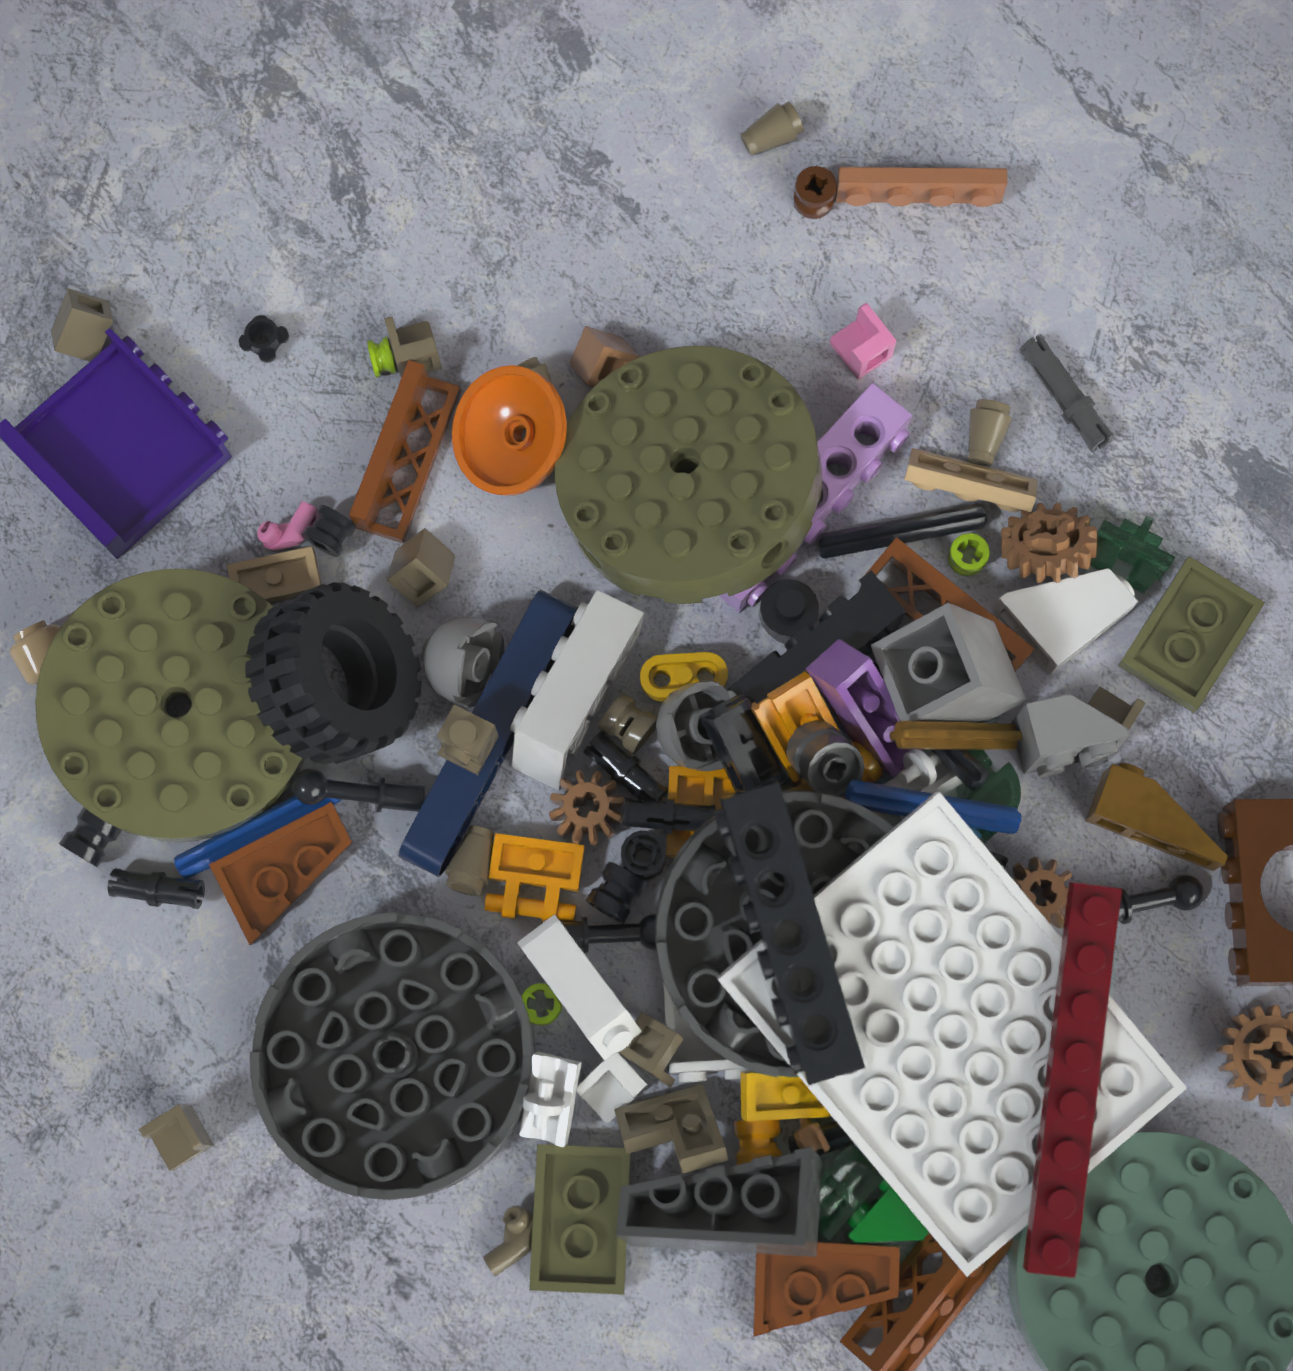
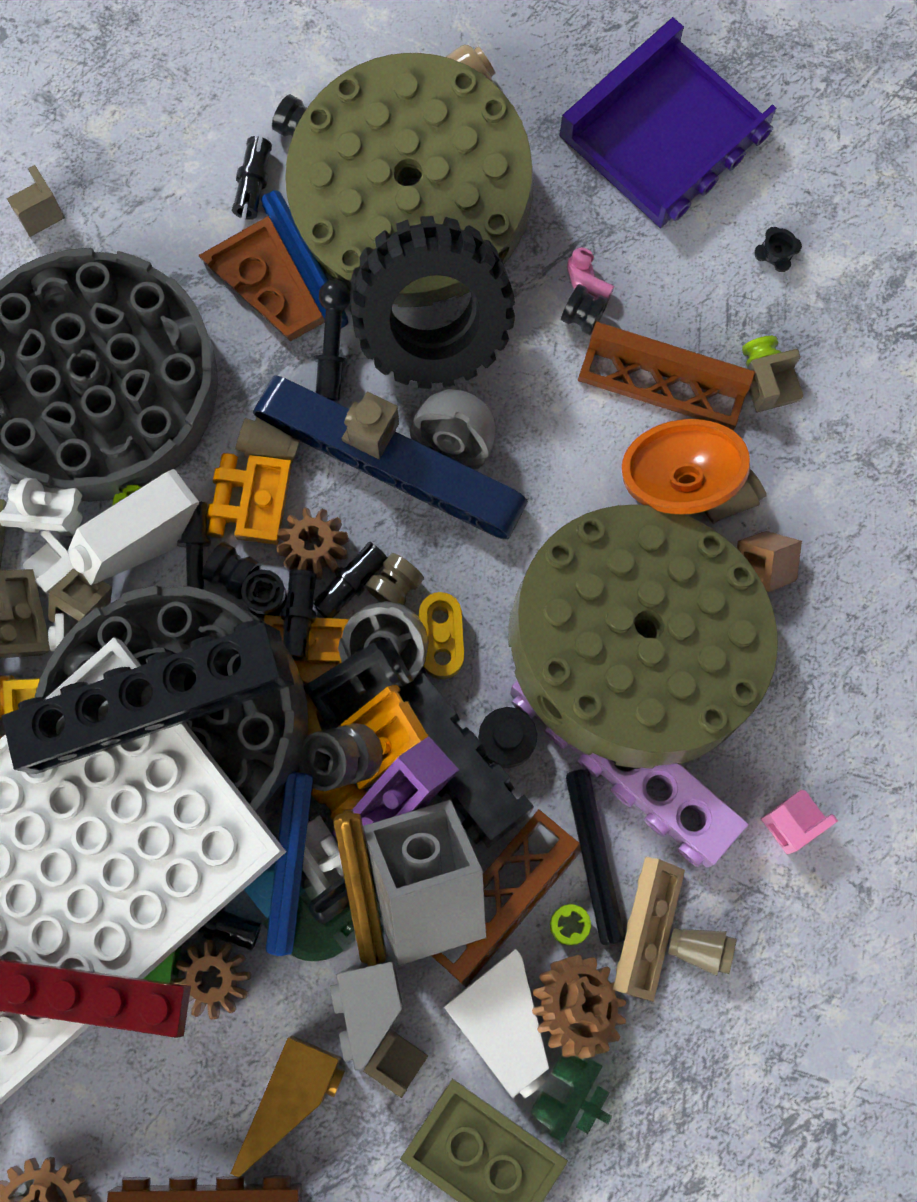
camera: 85 degrees right, 0 degrees up
(81, 325) = (784, 89): dark tan panel -> none
(278, 575) = (540, 267): tan plate -> none
(421, 568) = (549, 392): dark tan panel -> none
(573, 687) = (431, 530): white wedge -> none
(1070, 398) = (751, 1037): dark grey pin -> none
(1183, 892) = (213, 1133): black pin -> none

